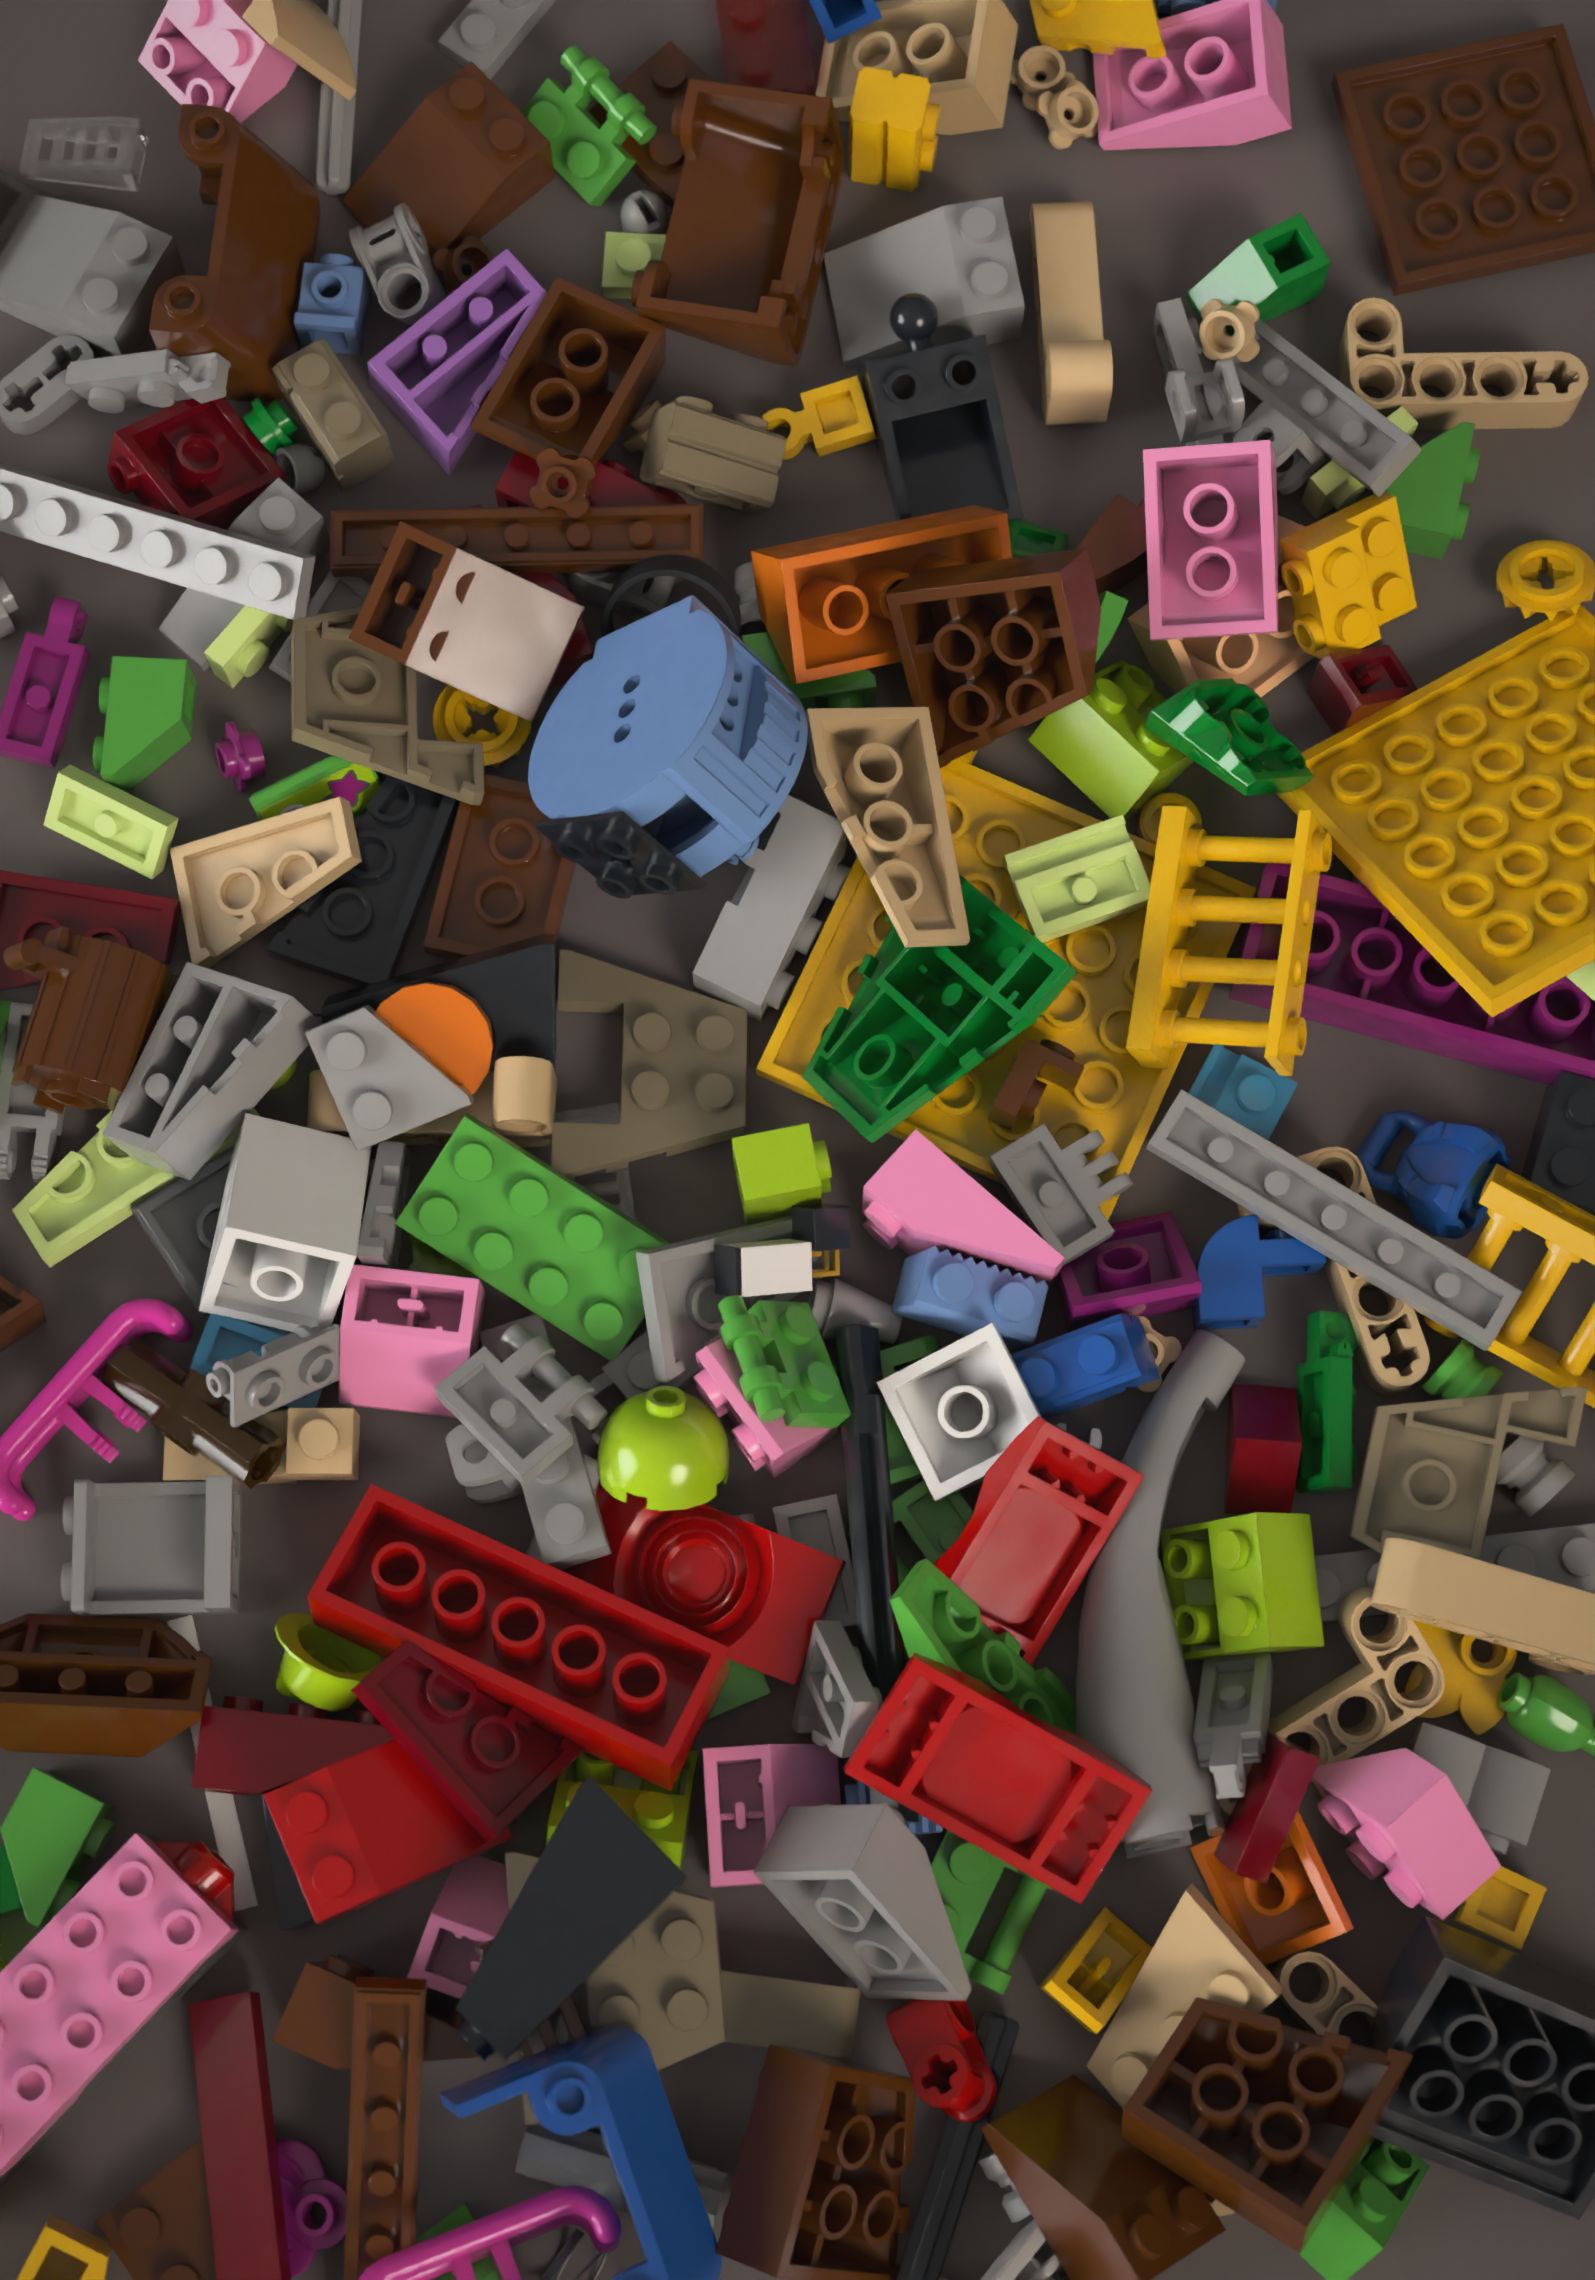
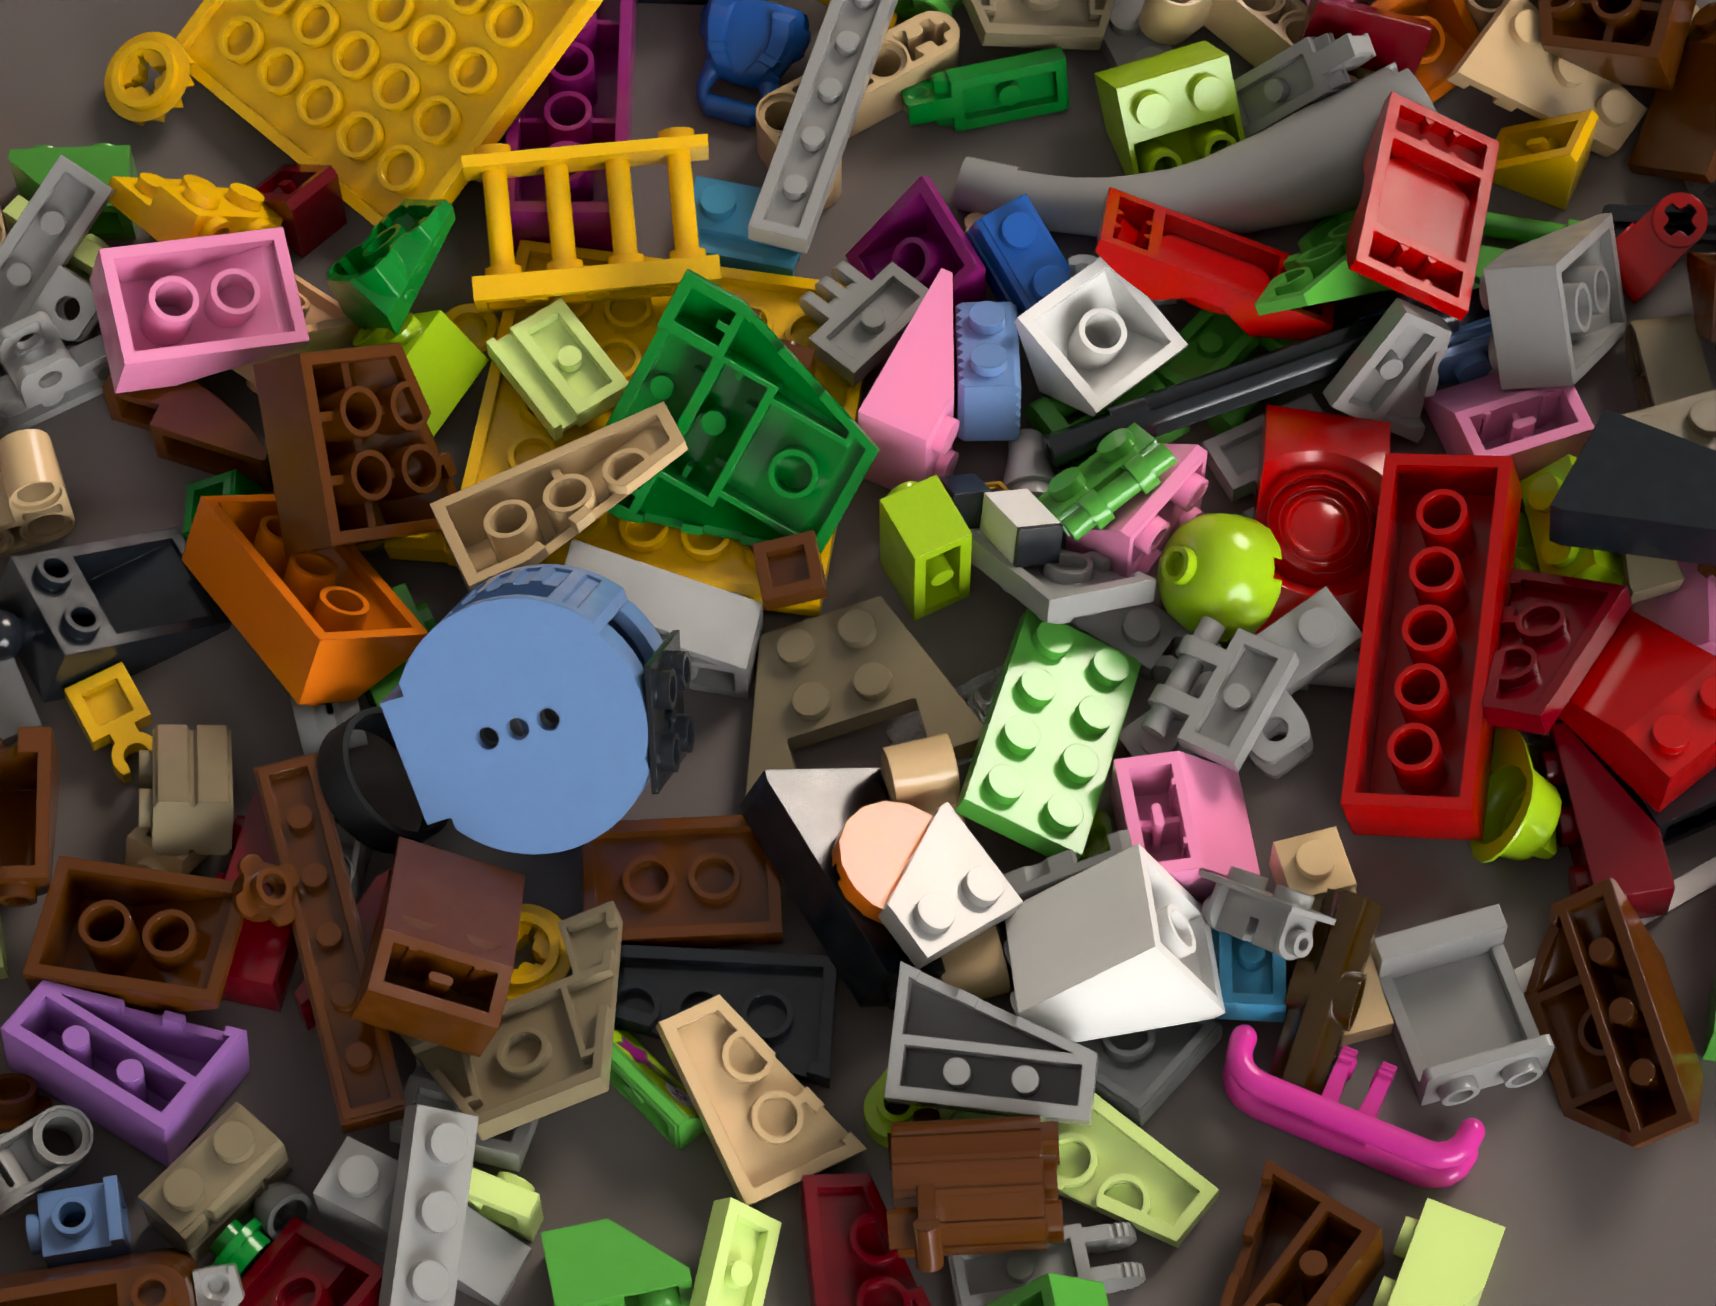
camera: 105 degrees left, 15 degrees down
(240, 756) = (625, 1169): magenta plate -> none
(786, 1040) = (790, 570): none -> reddish brown plate
(1234, 1268) = (877, 177): blue brick -> none
(1261, 1449) = (1042, 132): dark red slope -> none

